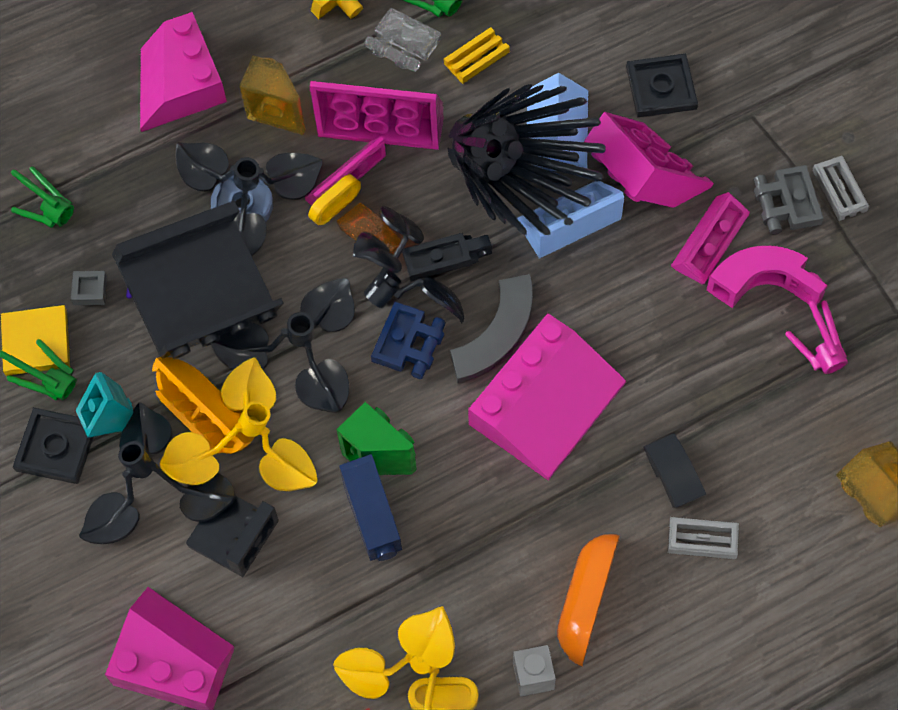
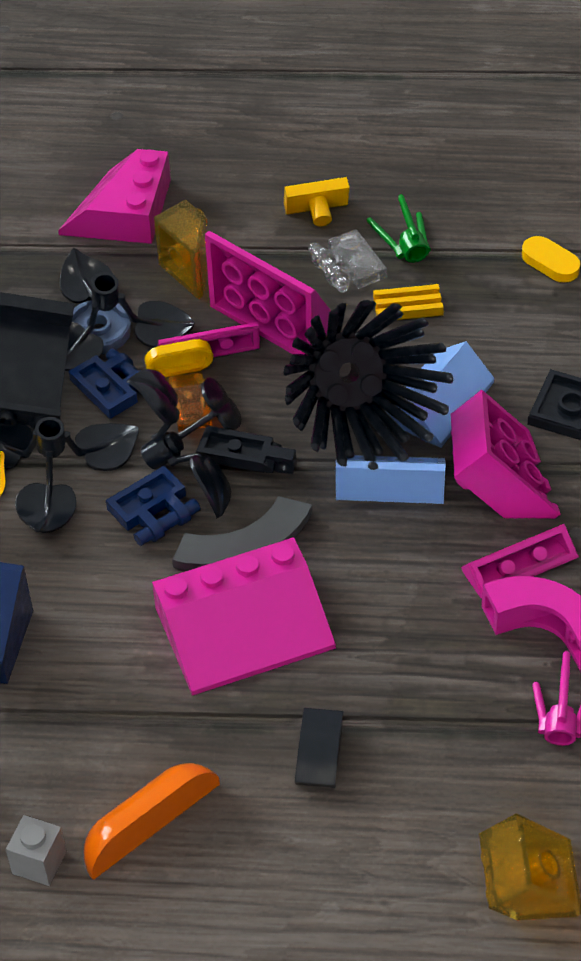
camera: 30 degrees right, 15 degrees down
(292, 255) = (103, 385): none -> dark blue plate
(369, 433) = (47, 571): green slope -> none
(703, 550) = (317, 853): light grey tile -> none

